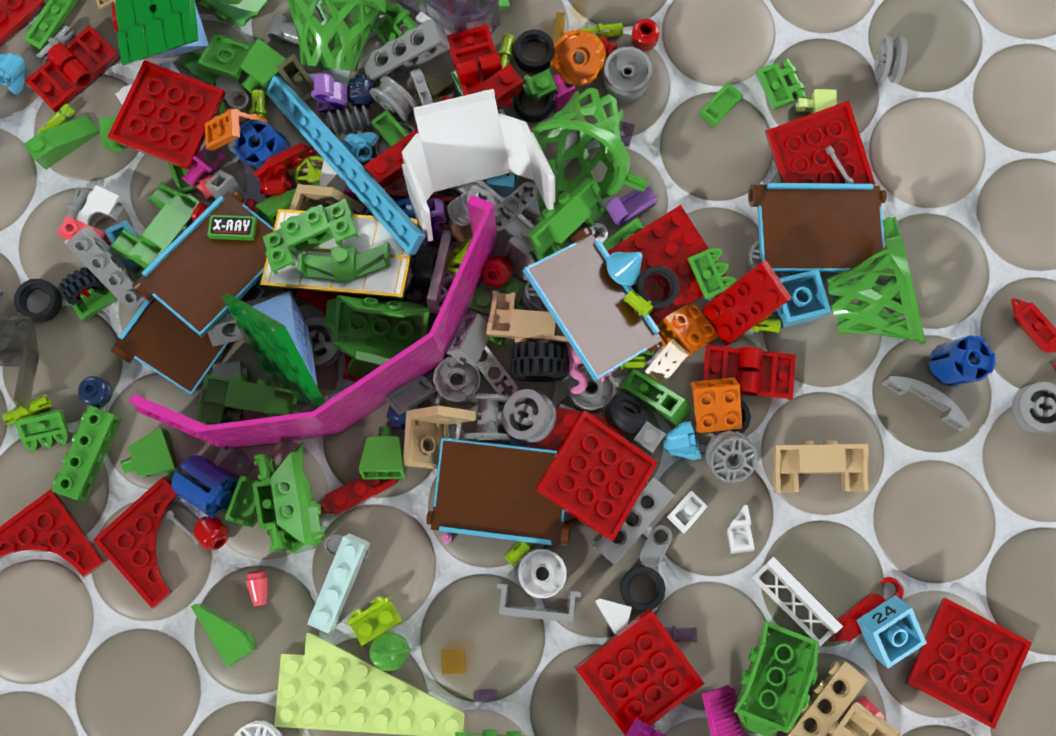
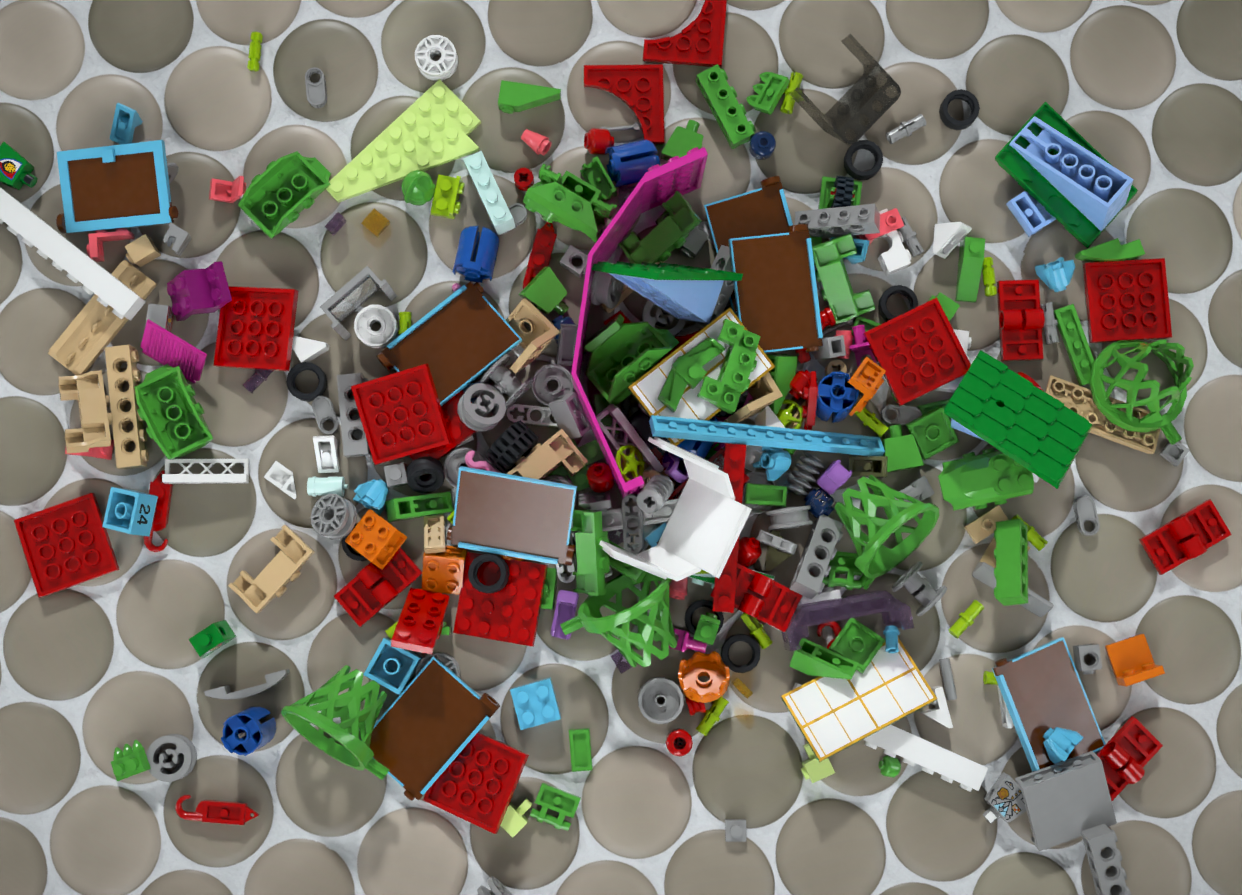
camera: 125 degrees right, 5 degrees up
(47, 177) = (948, 236): none -> white slope
(145, 185) = (894, 290): none -> black tyre
(232, 227) = (789, 324): tile -> none
(245, 175) = (837, 364): none -> tan wheel
(306, 567) = (525, 182): none -> red wheel
(338, 465) = (571, 254): none -> light grey brick
(407, 554) = (486, 255): none -> blue cylinder
(624, 267) = (521, 561): medium azure hat -> none
(638, 303) = (484, 548): lime pin -> none
(709, 273) = (465, 618): bright green plate -> none
(712, 488) = (323, 486): none -> light aqua piece
(720, 165) = (535, 703): none -> medium azure brick
(831, 152) = (440, 781): light grey hinge -> none
(923, 463) = (211, 638): none -> green torso

